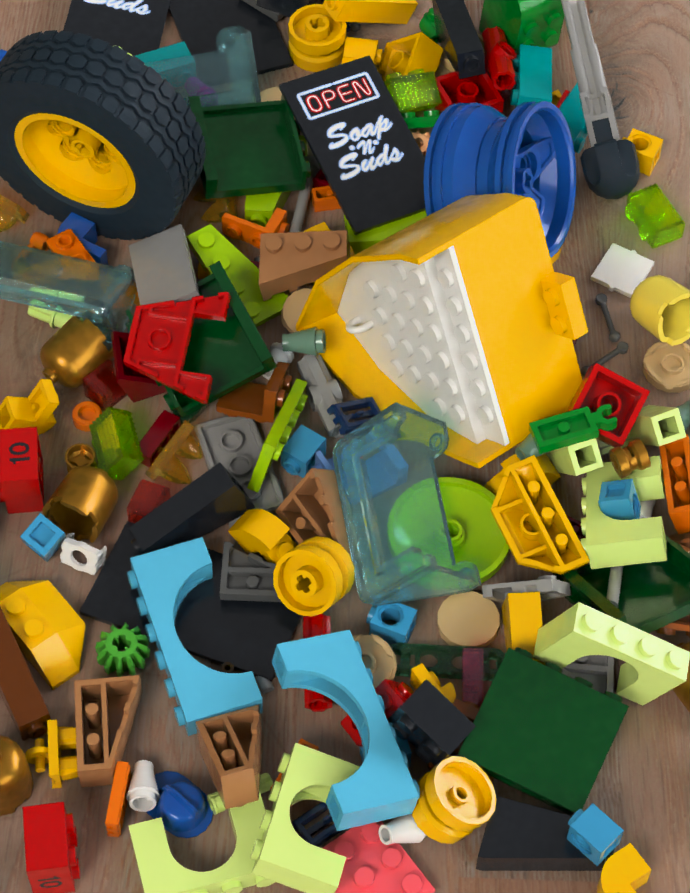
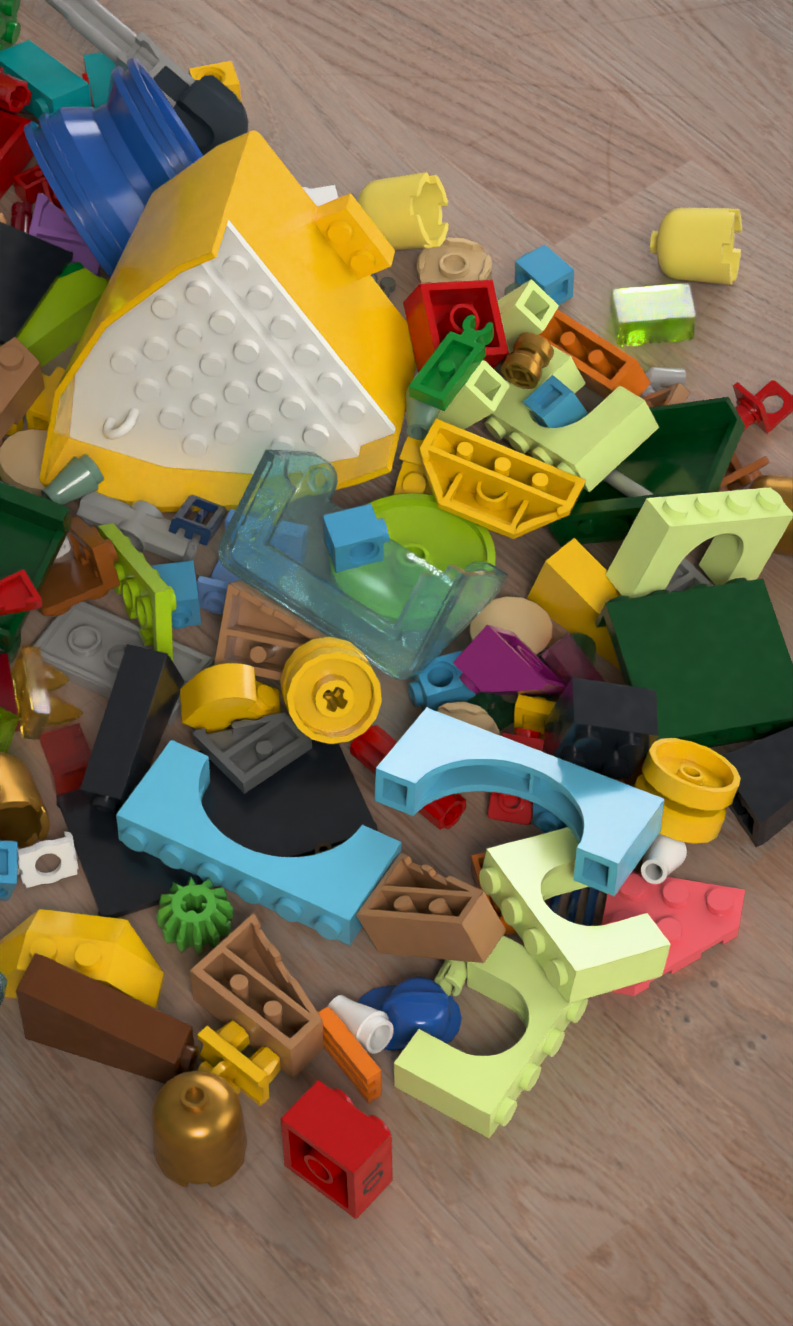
camera: 40 degrees left, 5 degrees down
(416, 493) = (354, 537): none -> dark azure brick
(429, 642) = (504, 665): none -> magenta slope
(547, 586) = (528, 571): light grey wing -> none
(654, 216) = (298, 139): clear neon green brick -> none

